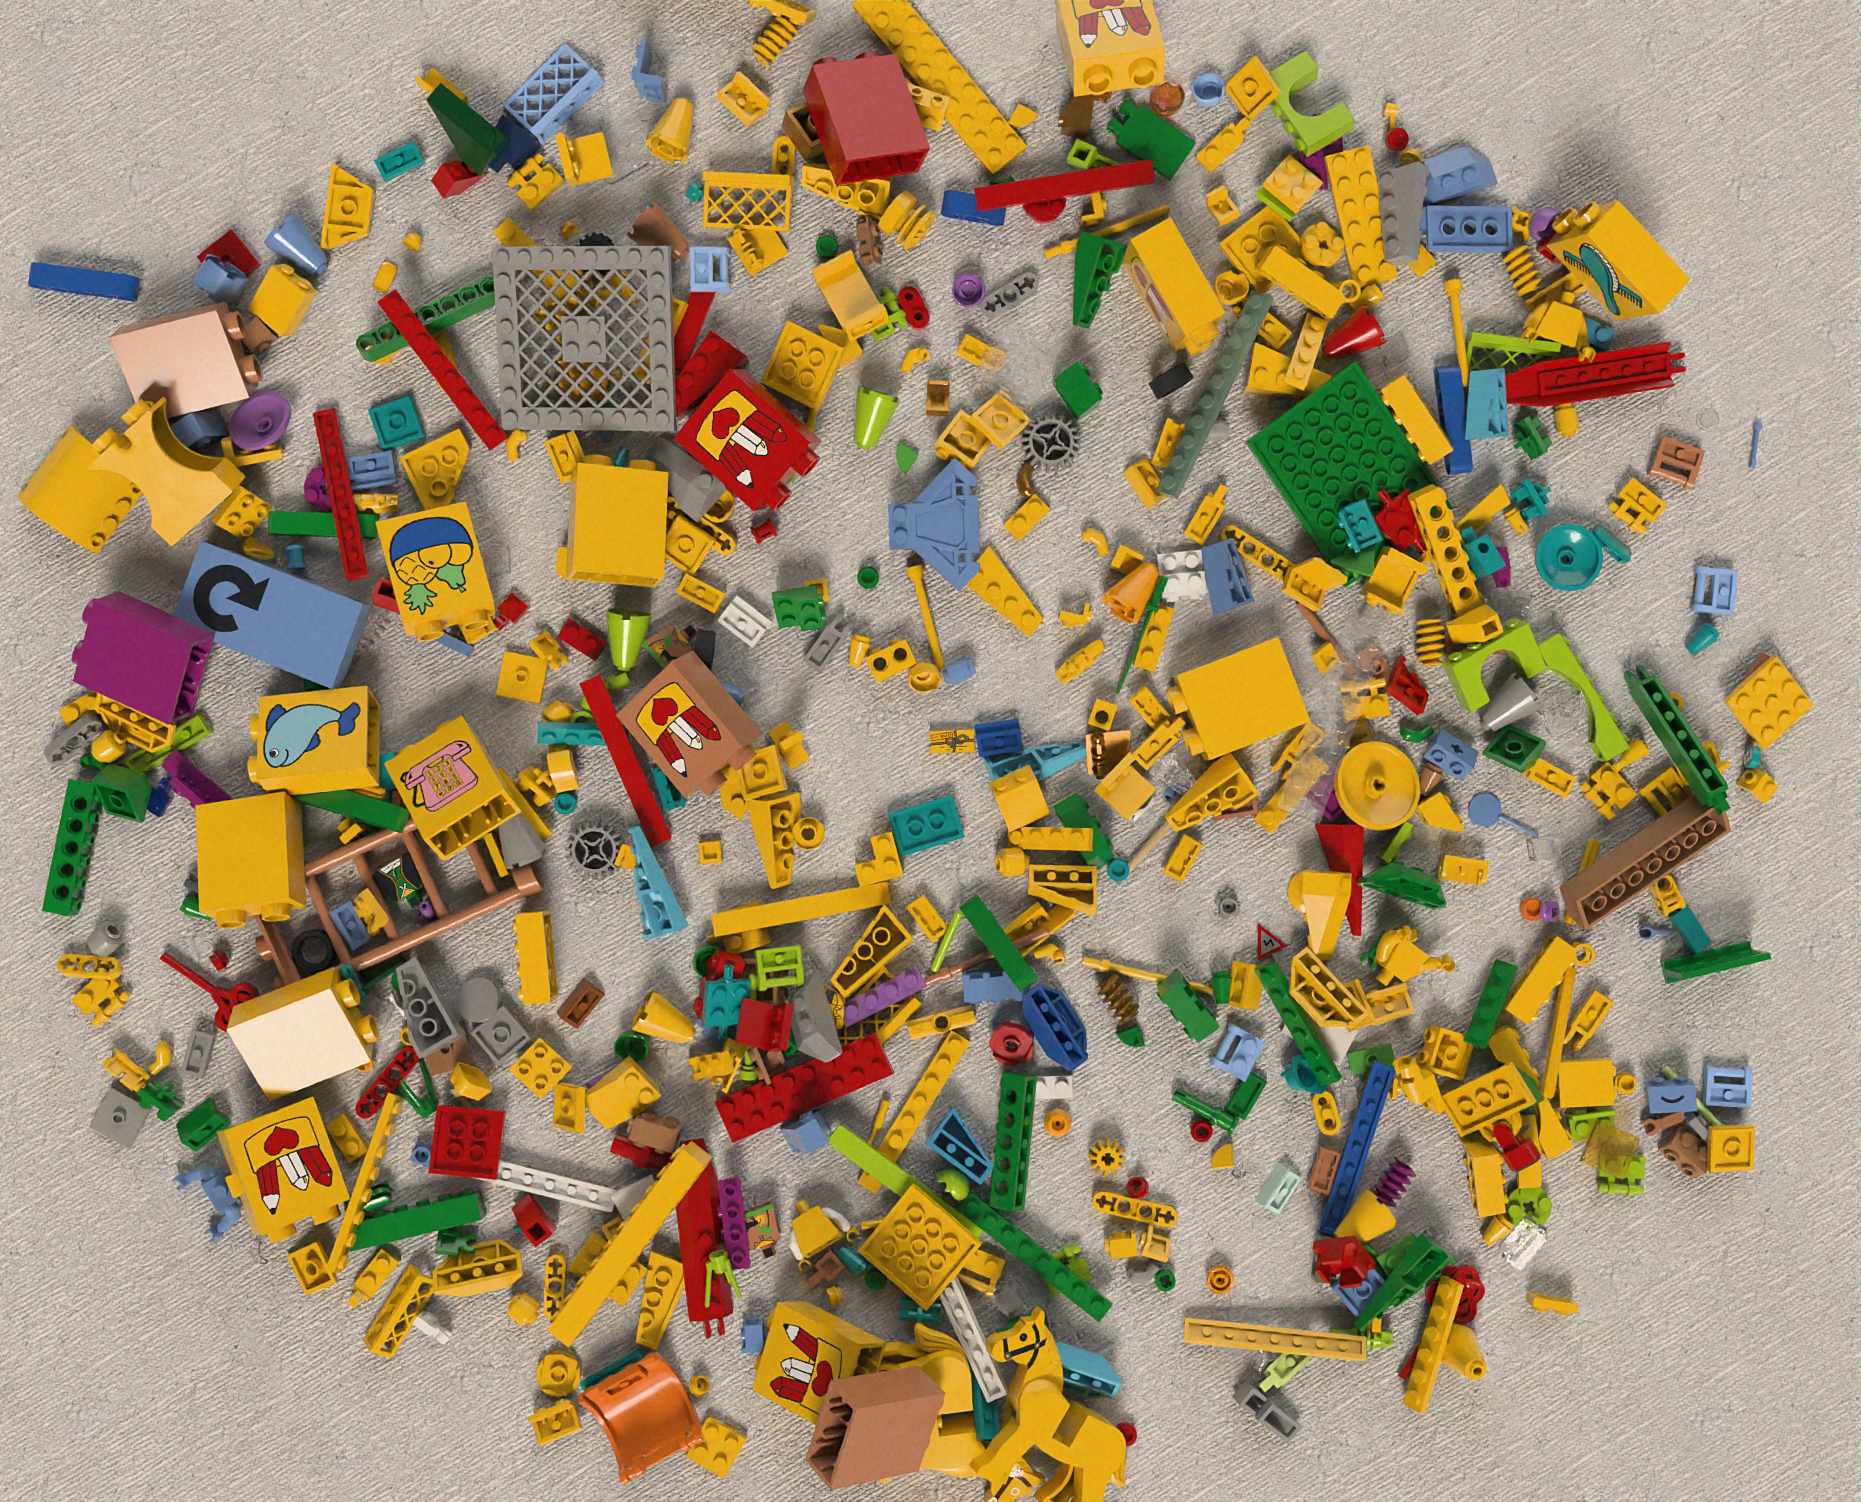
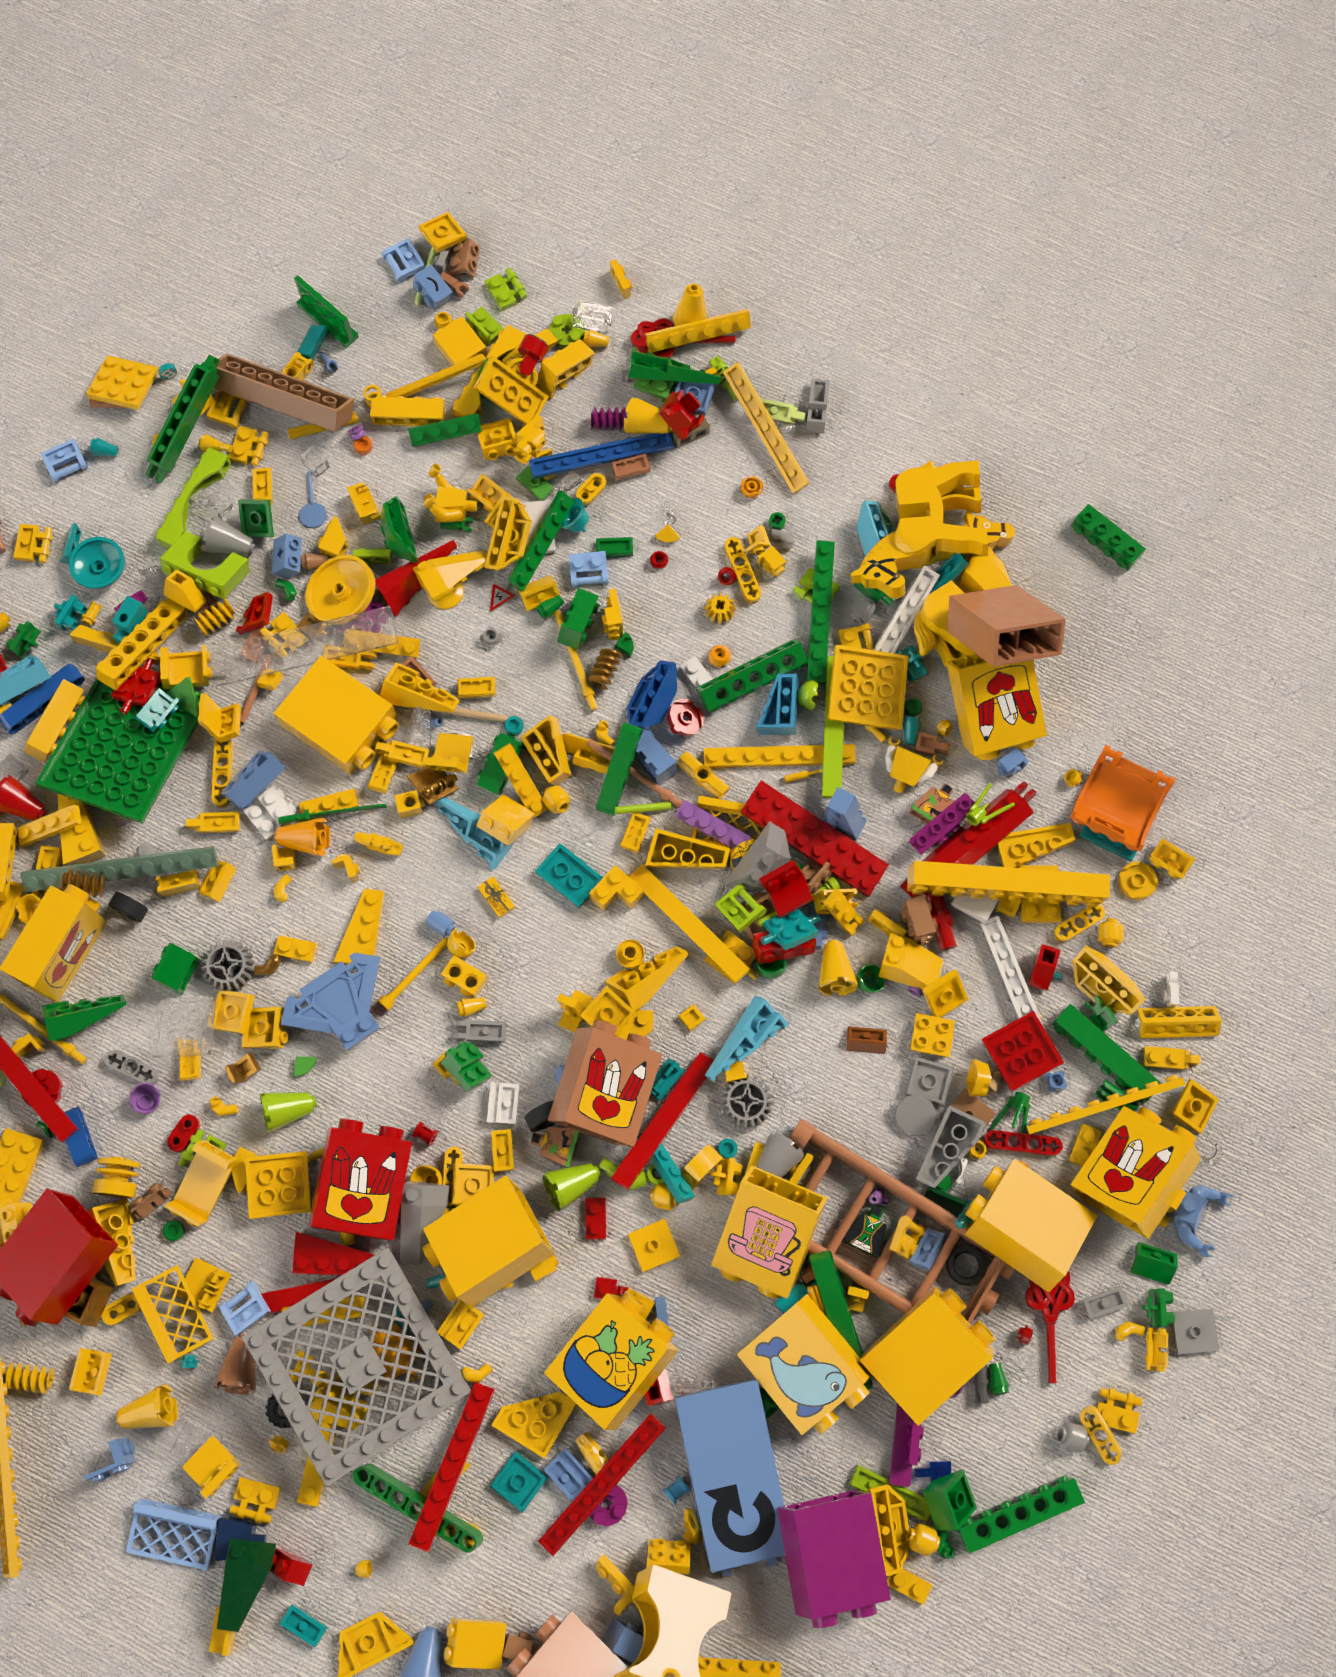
camera: 120 degrees left, 15 degrees down
(84, 729) = (937, 1575): light grey beam -> none
(260, 420) = (591, 1603): medium lavender dish -> none
(315, 524) = (641, 1492): green beam -> none
(384, 277) = (407, 1574): yellow piece -> none
(536, 957) = (852, 1090): yellow brick -> none
(547, 648) = (620, 1239): yellow plate -> none
(683, 1096) = (883, 923): none -> yellow plate
(719, 1448) = (1103, 733): yellow plate -> none
(868, 577) = (412, 1034): green plate -> none
(998, 738) = (472, 865): blue plate -> none
(1161, 1039) = (612, 619): none -> yellow plate
(1214, 1115) = (642, 557): green pin -> none
(1219, 350) = (84, 882): none -> pearl gold piece
(1278, 1188) = (664, 488): light aqua slope -> none
(1588, 1018) = (414, 367): yellow hinge -> none
(1609, 1149) = (493, 302): clear yellow plate -> none
(1758, 784) = (183, 357): yellow bracket -> none

